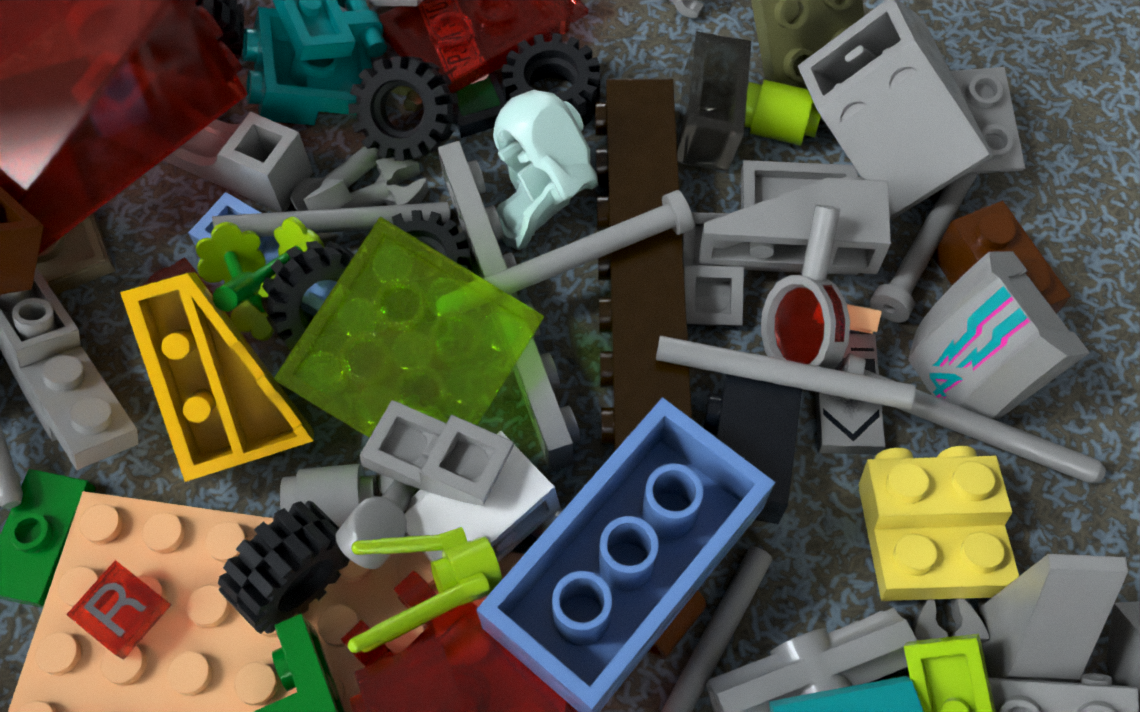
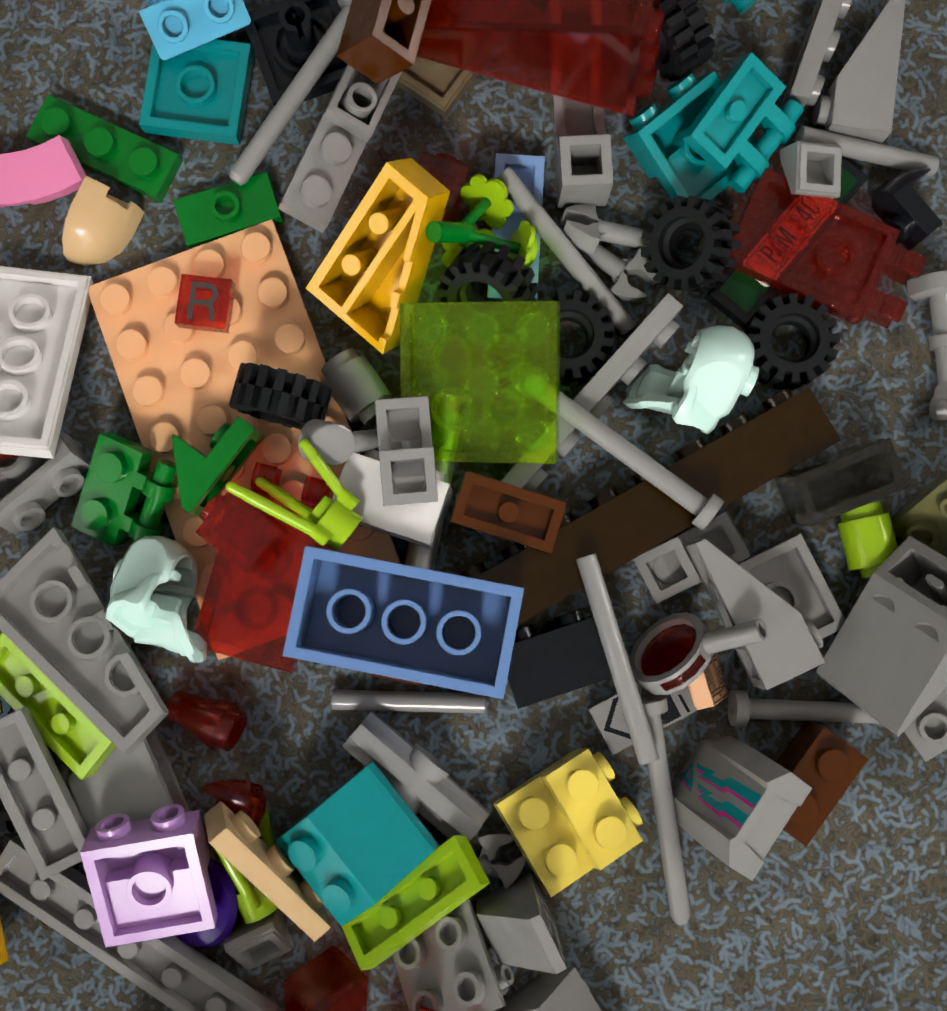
camera: 60 degrees right, 20 degrees up
(565, 396) = (507, 511): none -> reddish brown plate

